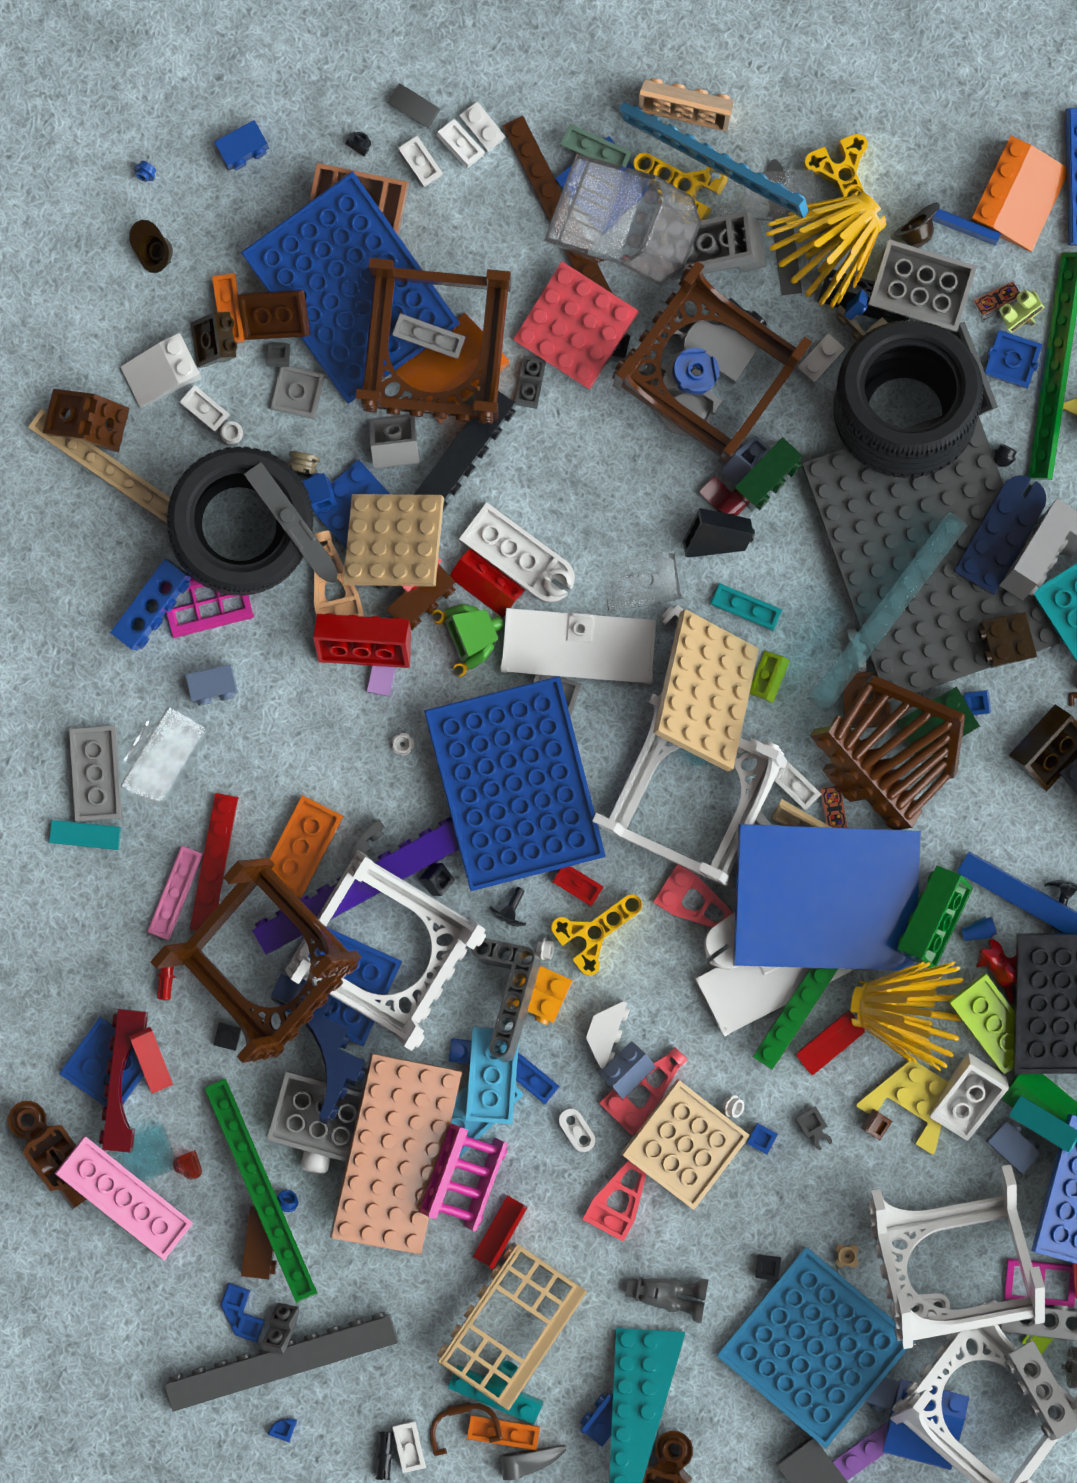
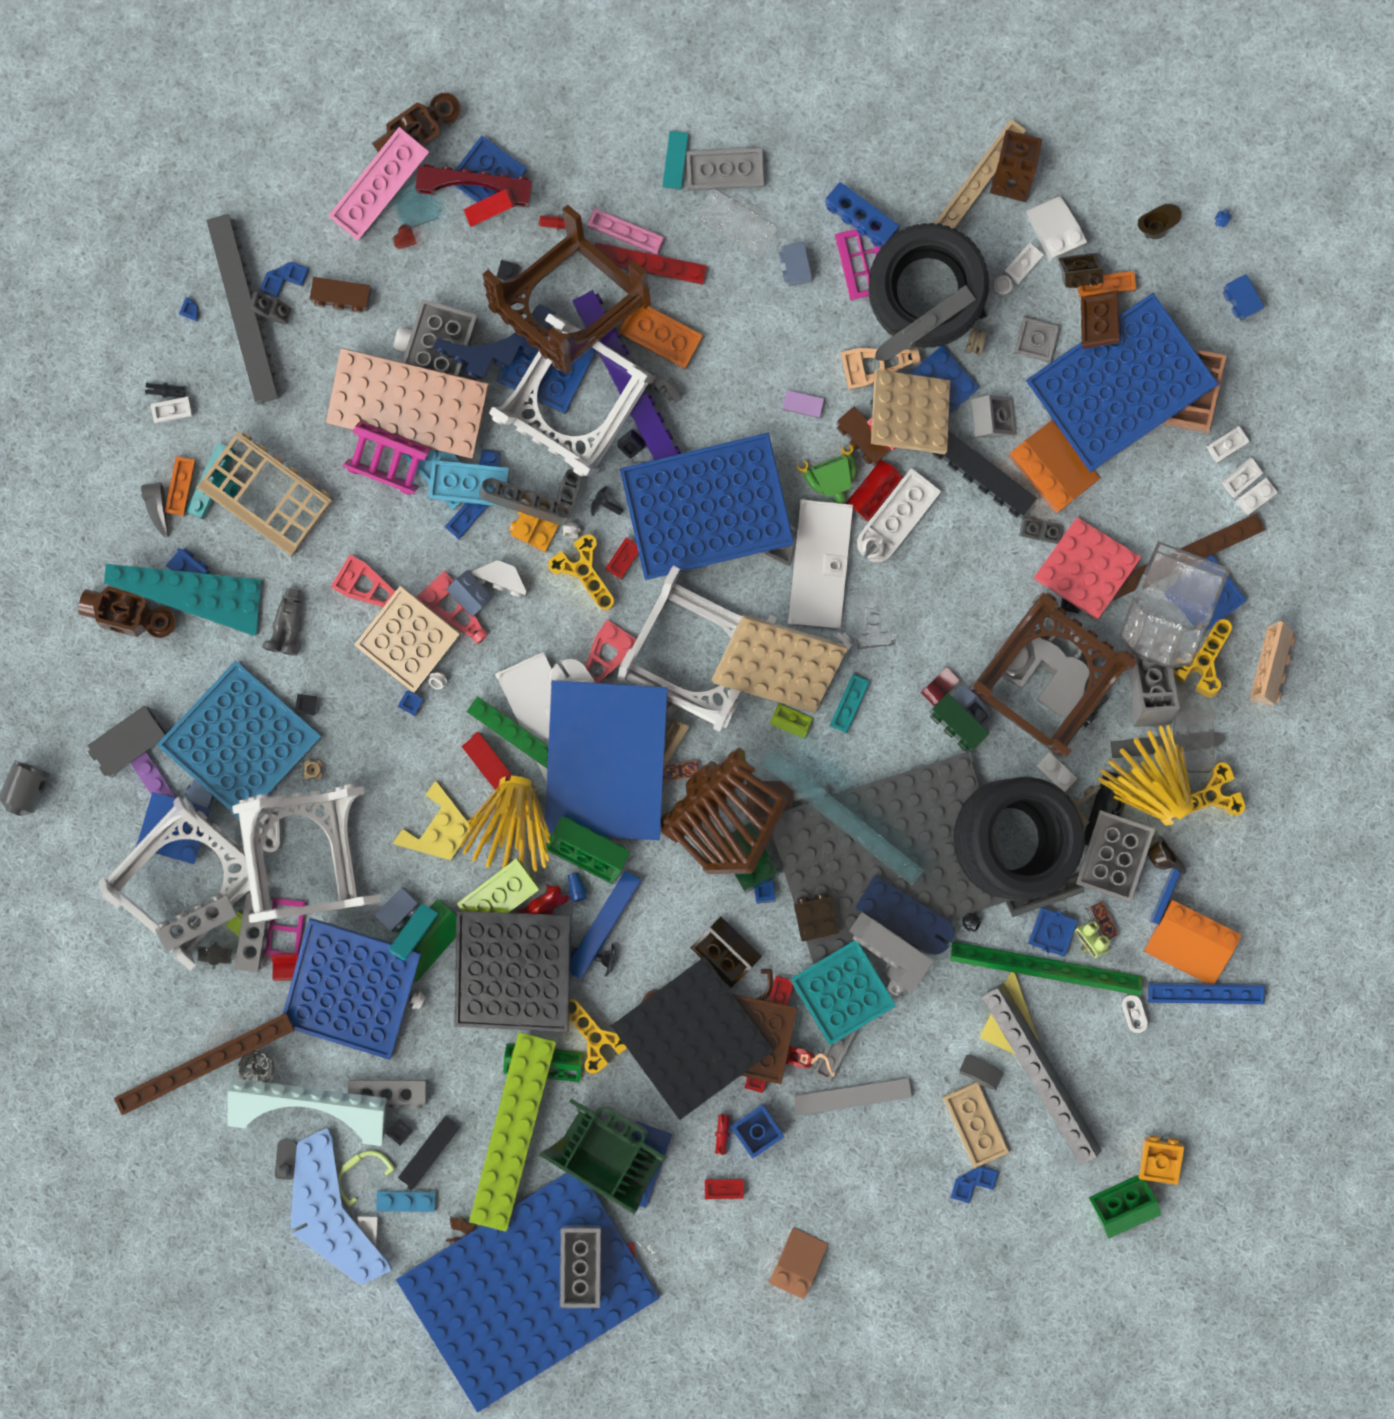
camera: 85 degrees right, 0 degrees up
(261, 1191) = (380, 293): green plate -> none
(278, 355) = (1067, 324): dark grey tile -> none
(288, 1200) = (376, 316): blue plate -> none
(320, 492) = (952, 353): blue brick -> none
(359, 142) = (1244, 394): black plate -> none
(363, 640) = (828, 386): red slope -> none
(373, 394) = (1036, 396): reddish brown arch -> none
(398, 739) = (742, 423): white plate -> none
(413, 106) = (1274, 439): dark grey slope -> none
(429, 336) = (1080, 445): light grey plate -> none
(458, 1409) = (200, 453): reddish brown piece -> none
(500, 1232) = (342, 488): red panel -> none
(576, 1130) = (422, 551): white plate -> none
(590, 145) = (1235, 588): sand green plate -> none
(689, 382) = (1054, 671): blue plate -> none
(717, 534) = (910, 680): black slope -> none
(719, 162) = (1221, 688): dark azure plate -> none
(797, 786) = (699, 740): white plate -> none
(812, 1125) = (421, 744): dark grey plate -> none
(856, 305) = (1099, 801): blue plate -> none
(876, 1124) = (419, 797): reddish brown tile -> none
(969, 1096) = (439, 873): white slope -> none

